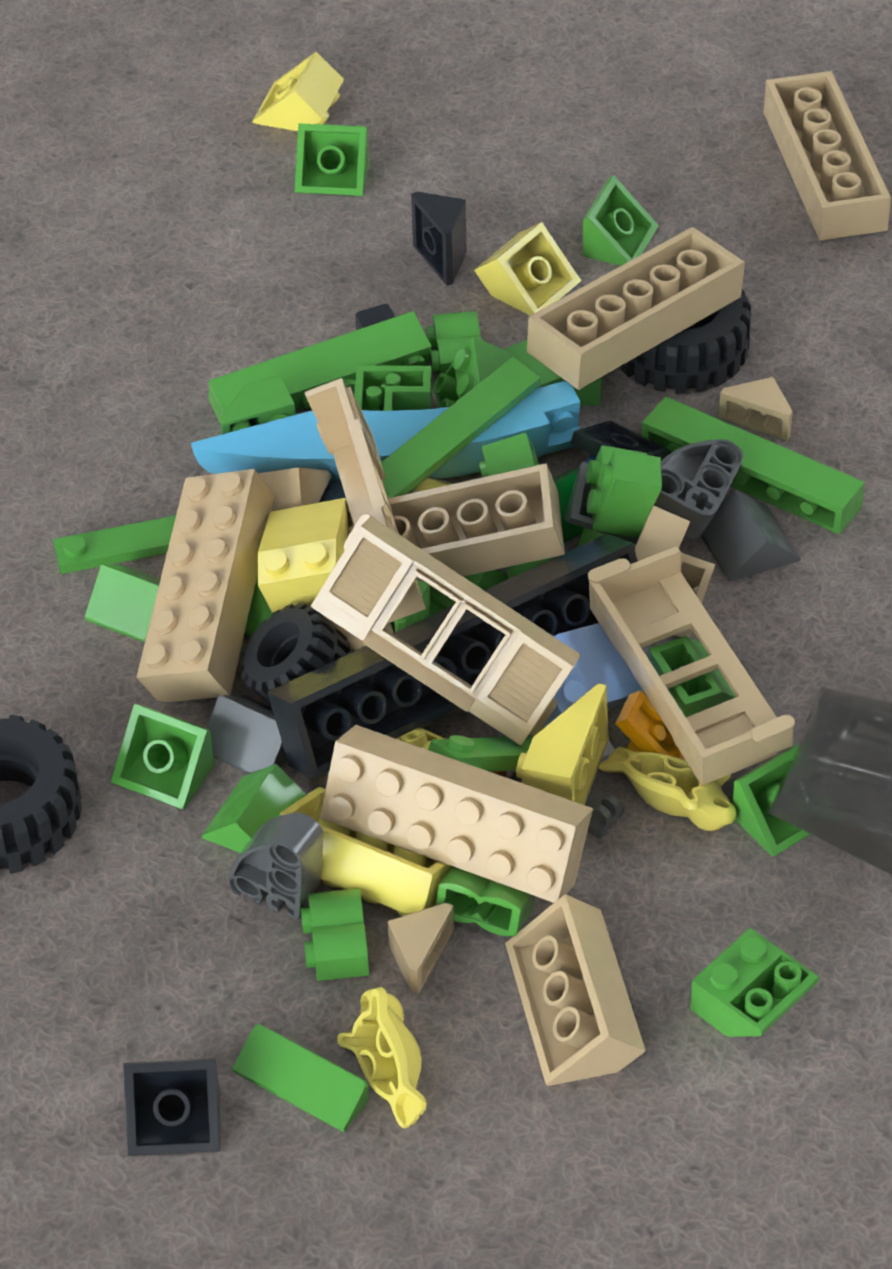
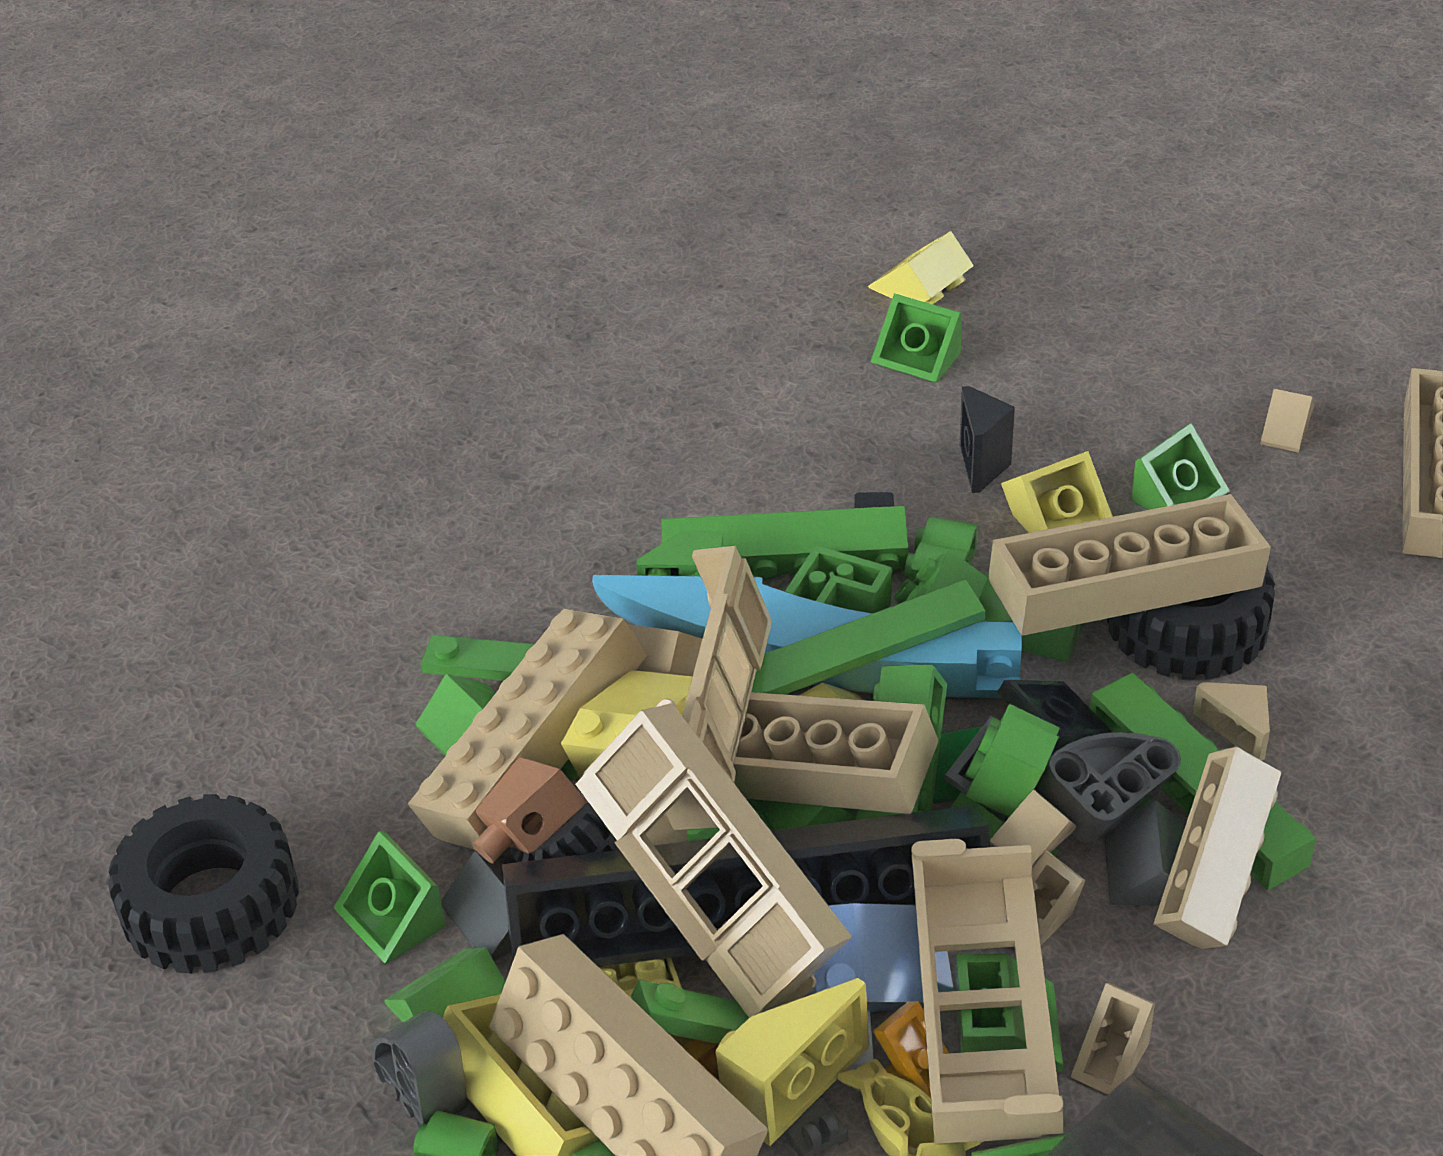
camera: 25 degrees right, 5 degrees down
(254, 644) = (525, 808): none -> nougat torso
(678, 151) = (1287, 420): none -> tan slope
(787, 673) = (1114, 1039): none -> tan slope
(801, 510) = (1218, 849): none -> tan brick

